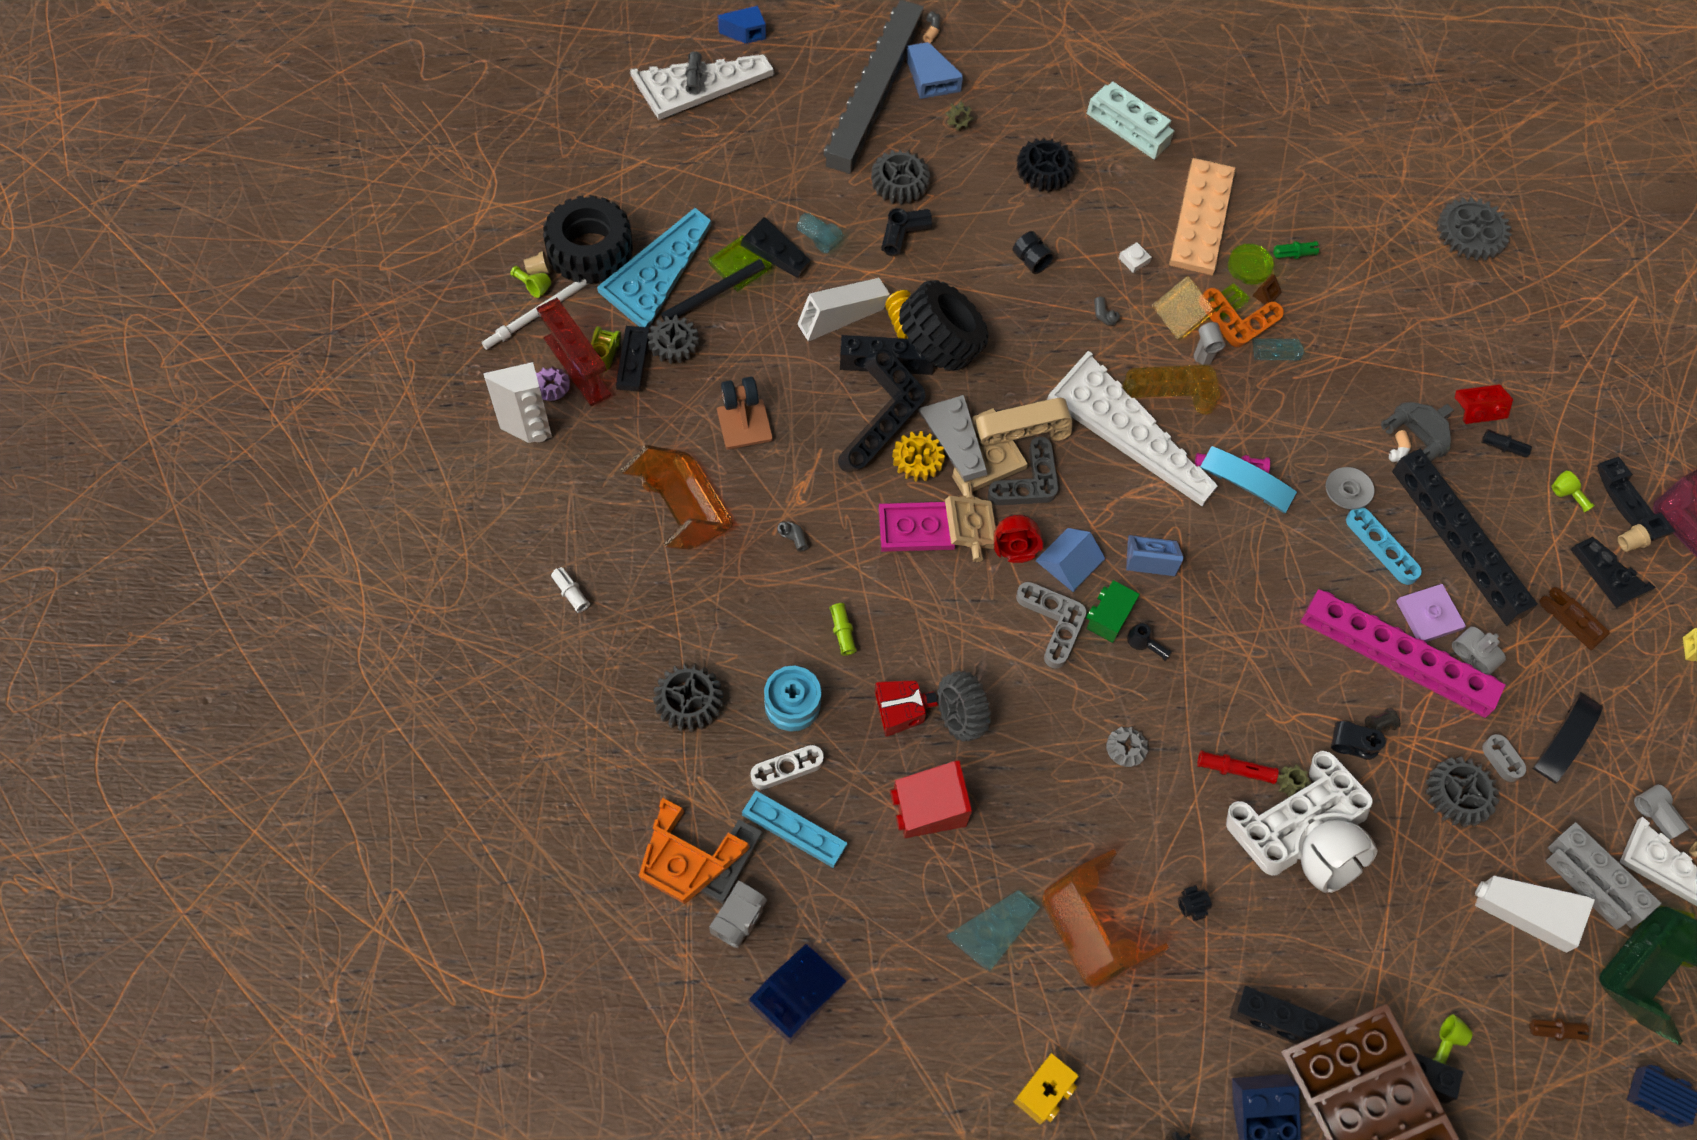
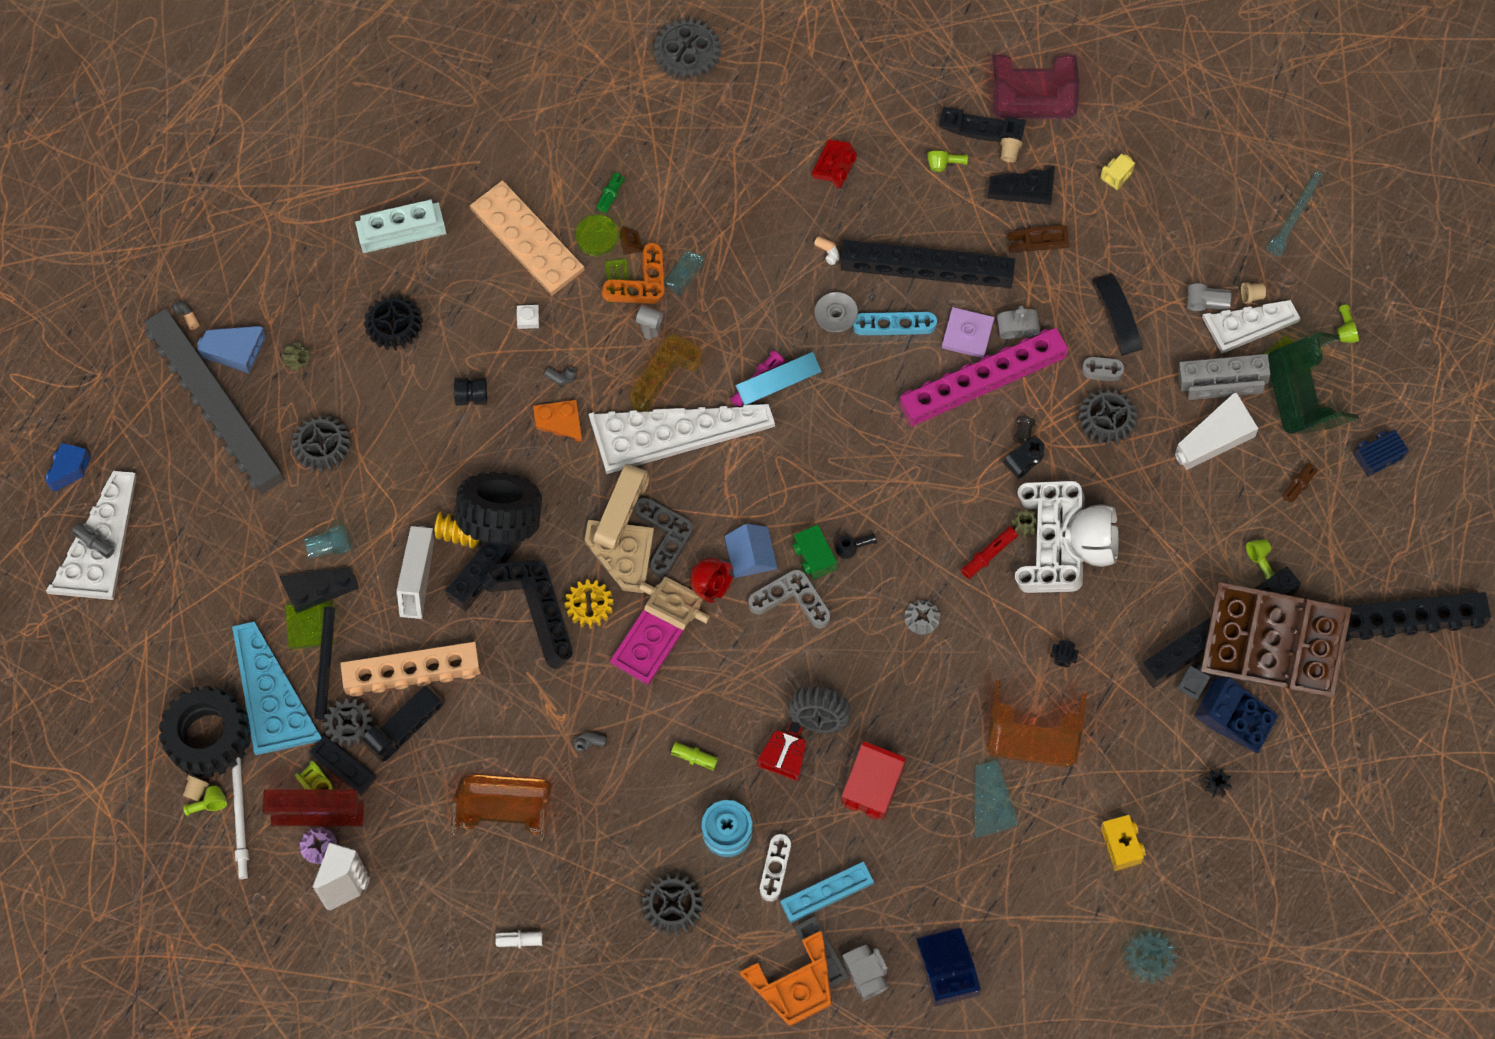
camera: 50 degrees left, 5 degrees up
(692, 379) = (404, 724): none -> black beam
(719, 316) = (399, 663): none -> light nougat brick
(743, 421) = (460, 713): nougat plate -> none
(901, 222) = (373, 484): black piece -> none
(955, 431) = (585, 561): light grey wing -> none
(1066, 334) = (559, 418): none -> orange wing
(1153, 555) = (789, 490): medium blue slope -> none
(1183, 308) = (603, 316): clear yellow tile -> none
(1267, 1054) = (1194, 681): none -> black bracket
(1426, 424) = (824, 216): dark grey connector -> none
(1506, 443) = (877, 174): black axle -> none

